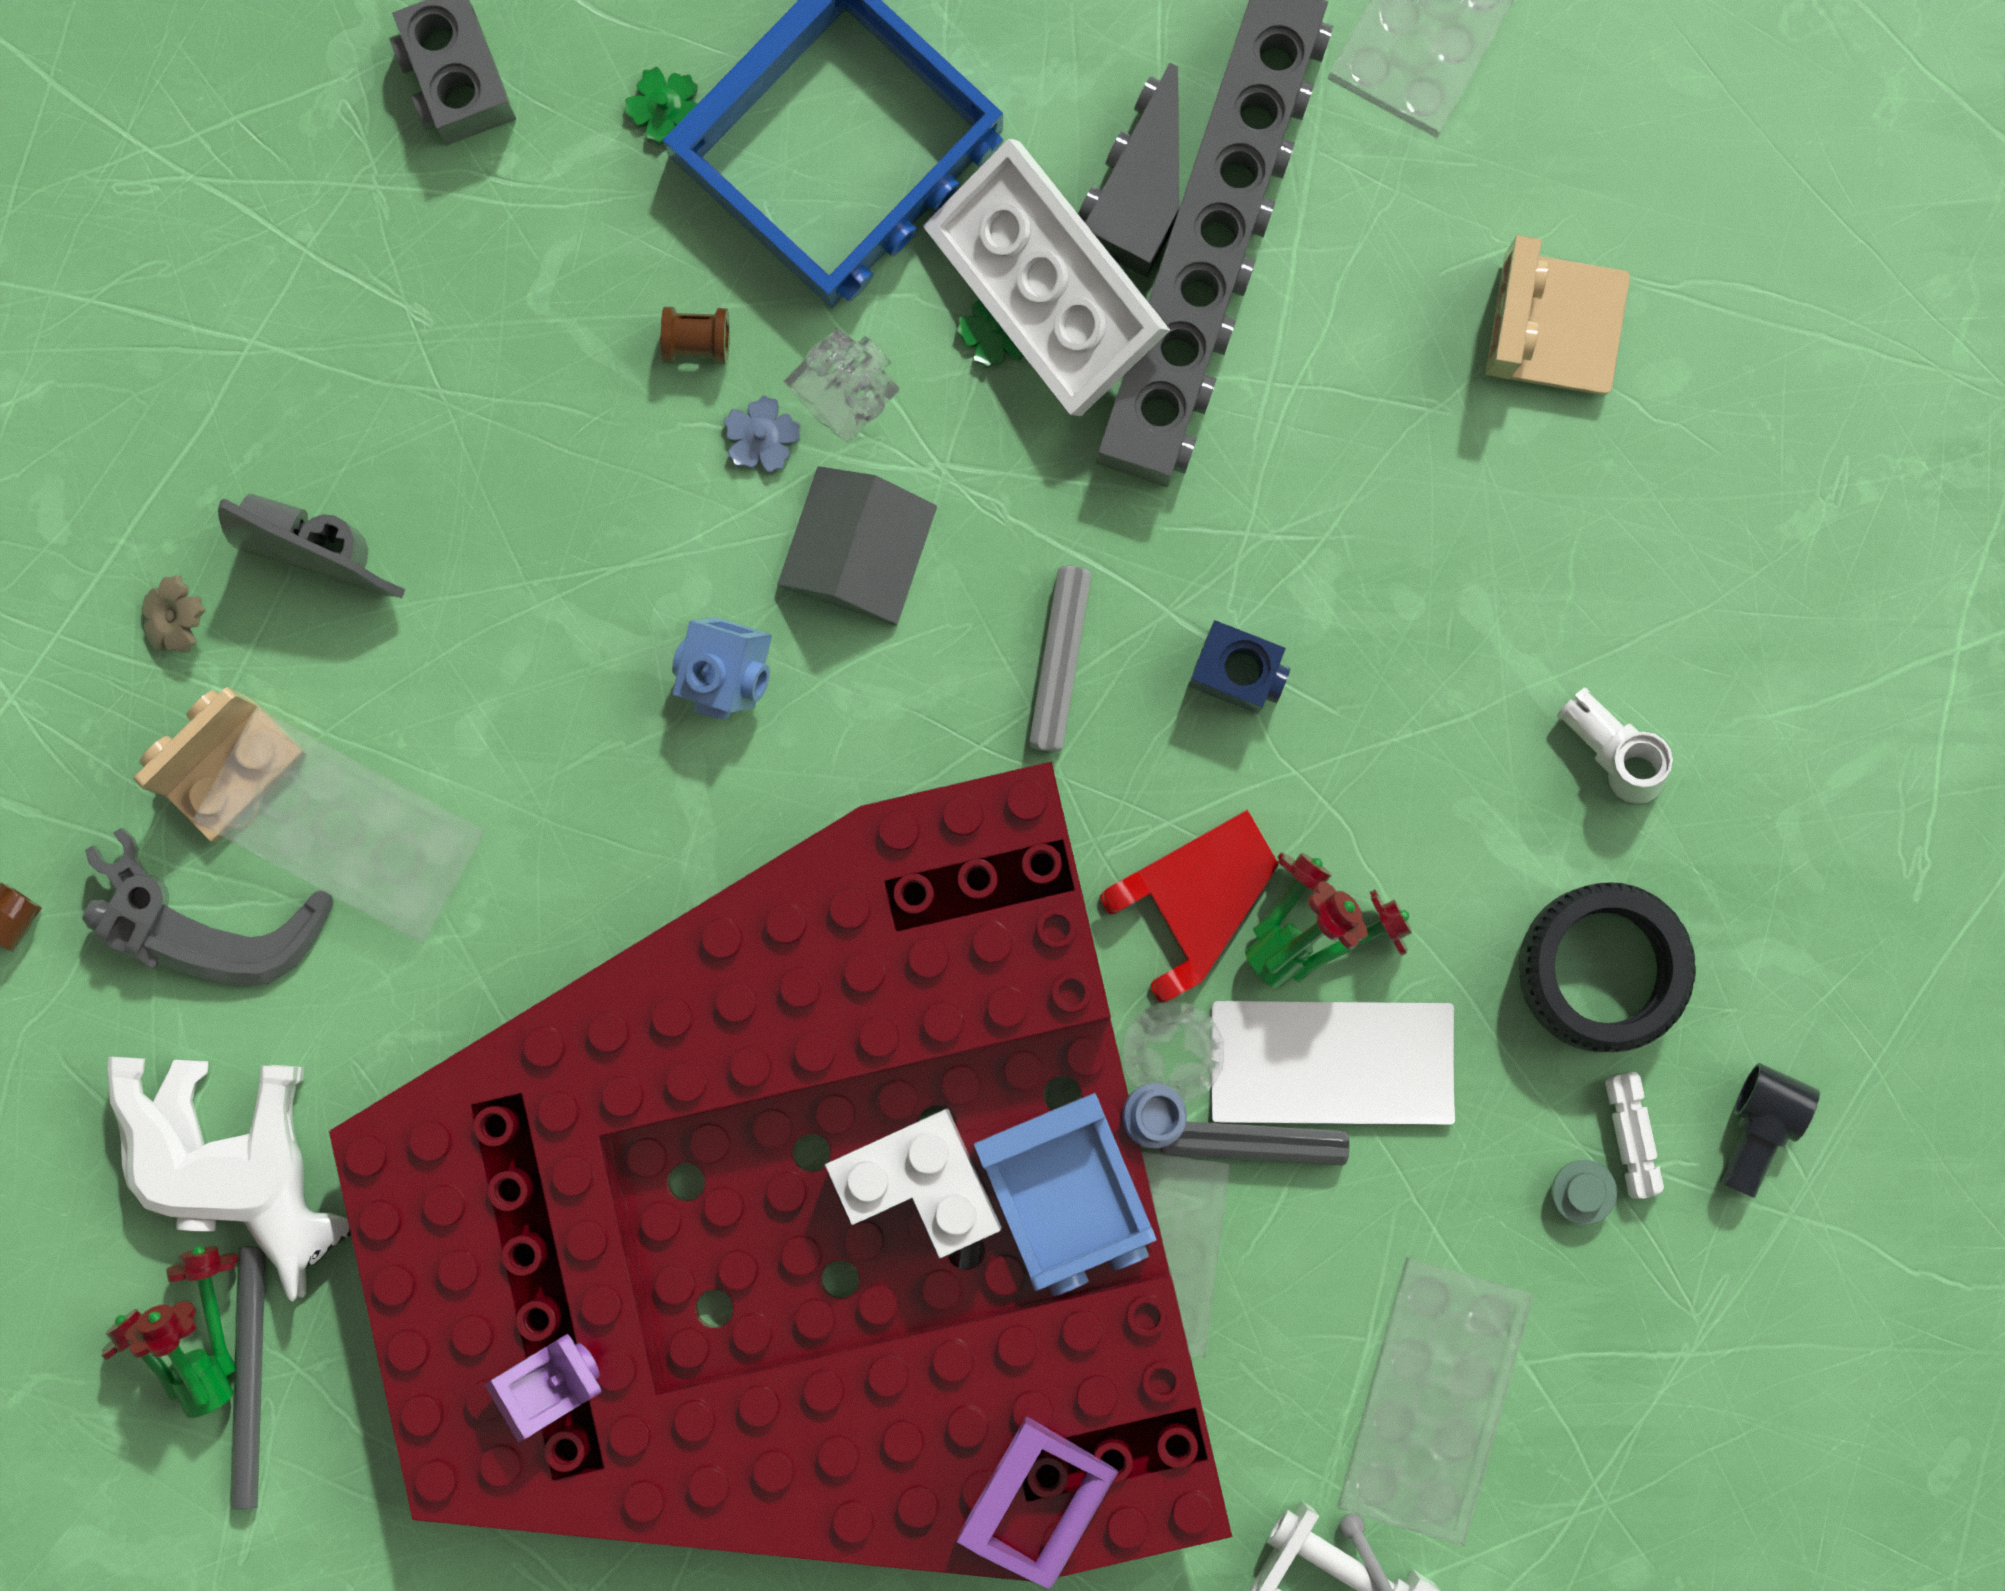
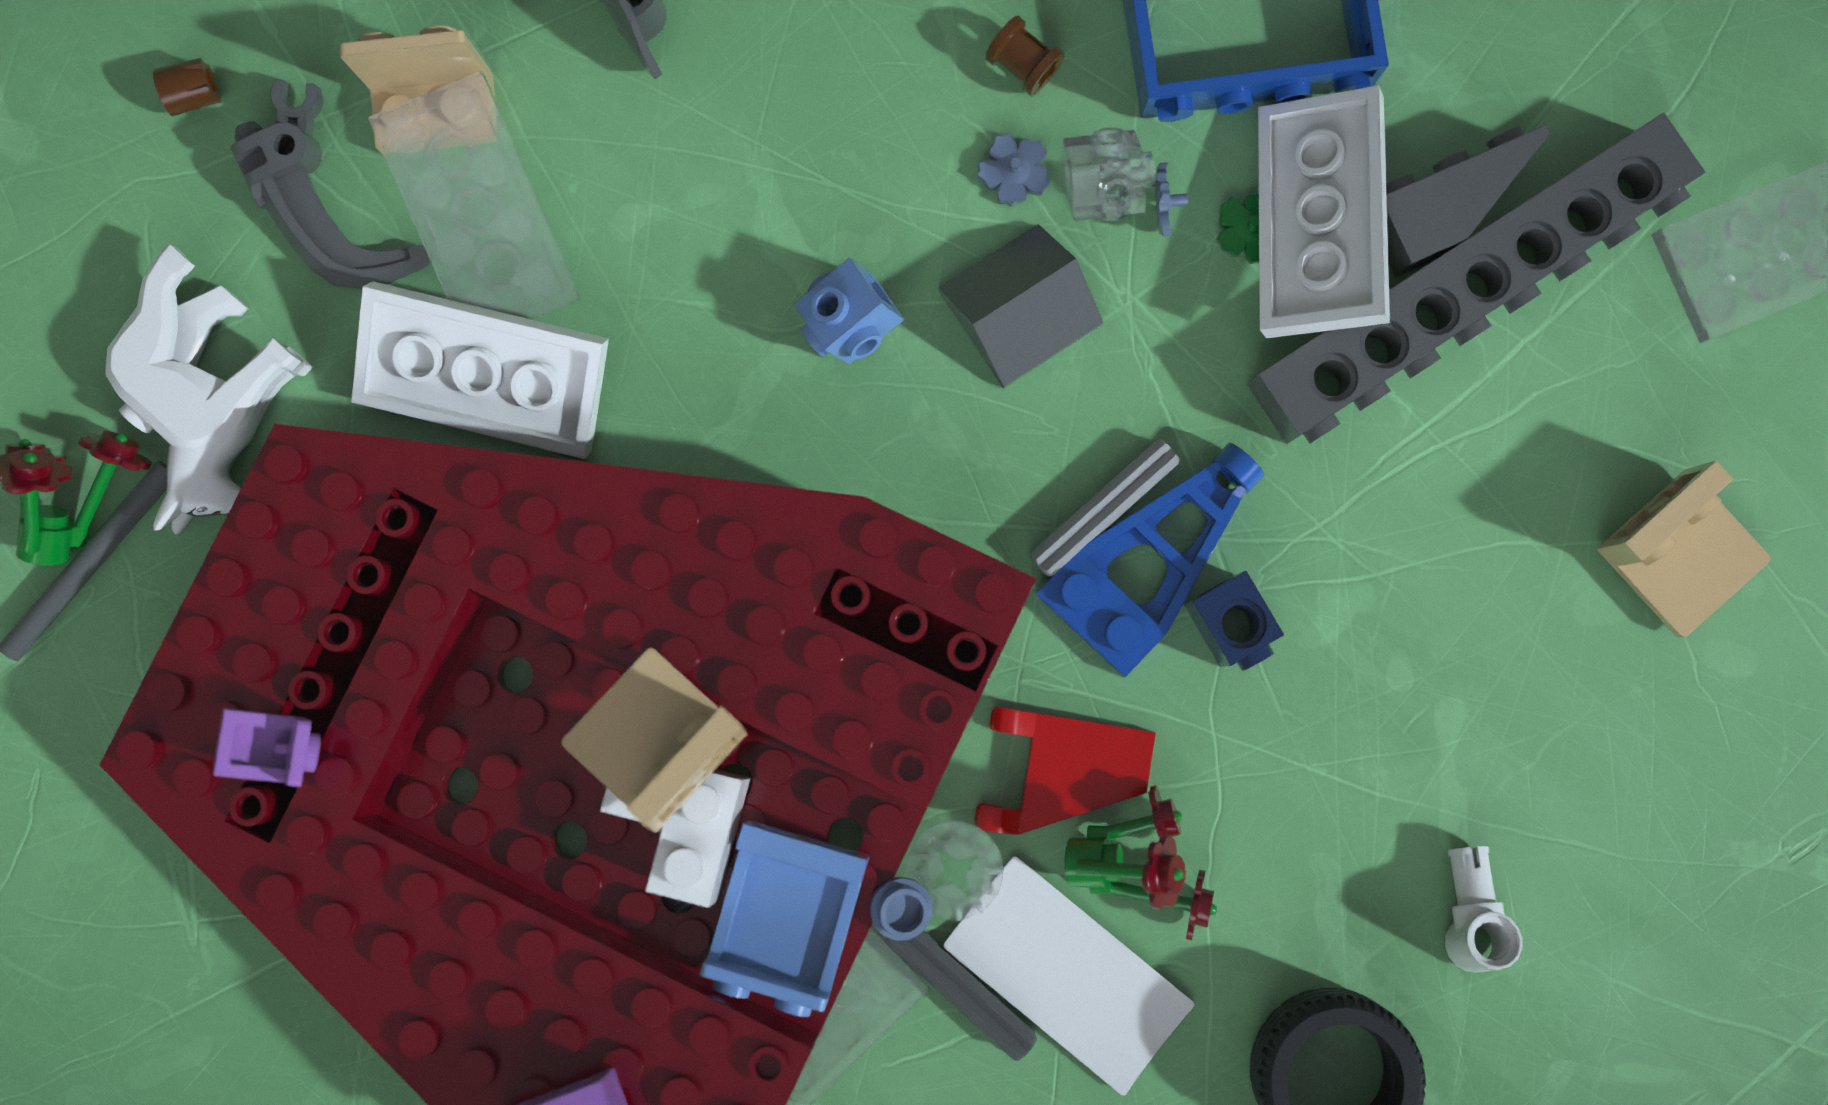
camera: 45 degrees right, 0 degrees up
(453, 956) = (478, 369): none -> white plate
(850, 1130) = (653, 739): none -> tan bracket
(908, 366) = (1165, 201): none -> sand blue plant
(1123, 745) = (1101, 611): none -> blue plate

